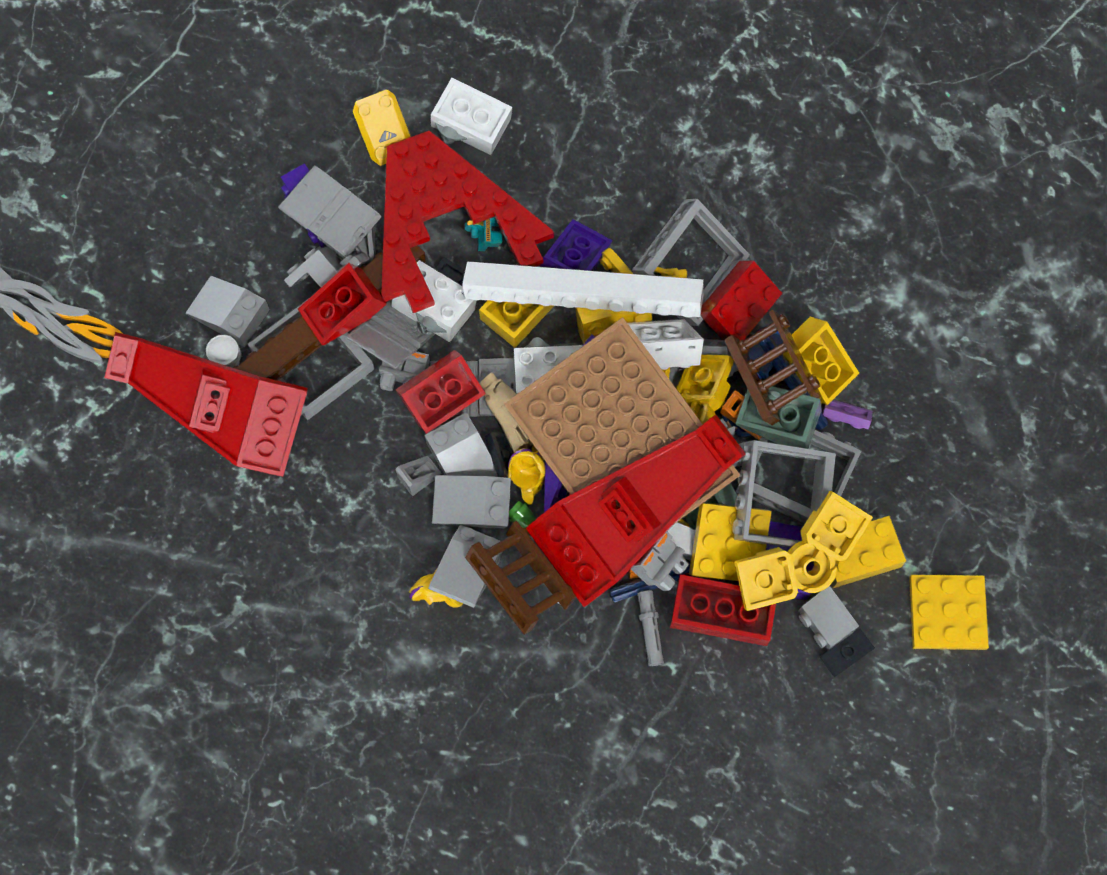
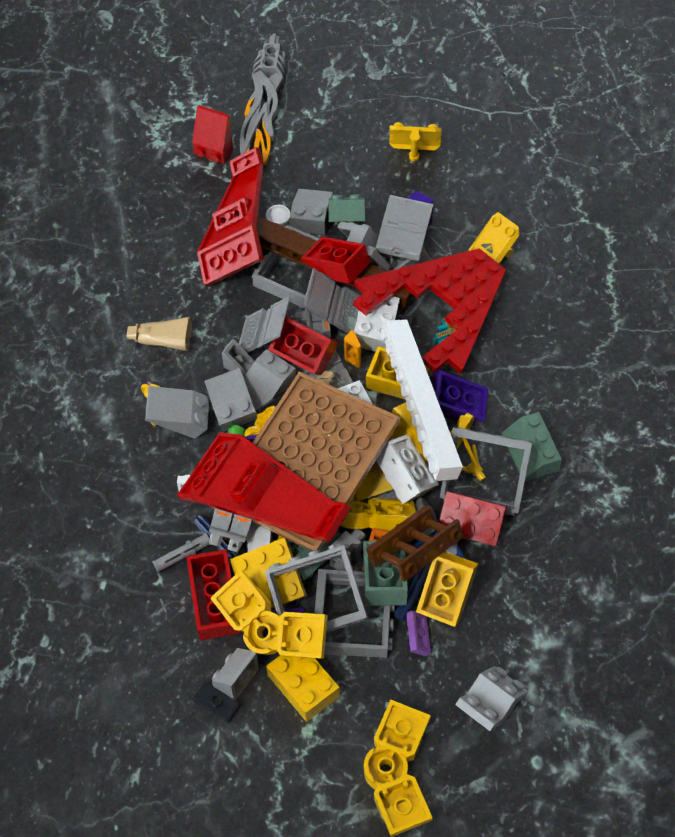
camera: 70 degrees right, 15 degrees down
(61, 382) = (212, 135): none -> red slope
(185, 149) = (415, 138): none -> yellow shield
(270, 266) = (347, 208): none -> sand green slope
(338, 545) = (168, 333): none -> tan piece
(391, 425) = (263, 326): none -> light grey piece
(466, 338) = (352, 349): none -> light orange slope
(470, 117) = (532, 292): white piece -> none
(503, 590) = (173, 424): reddish brown fence -> none
(660, 199) = (543, 456): none -> sand green slope
(948, 612) = (282, 771): yellow plate -> none
(952, 369) = (492, 697): none -> light grey bracket
(964, 485) = (396, 792): none -> yellow plate

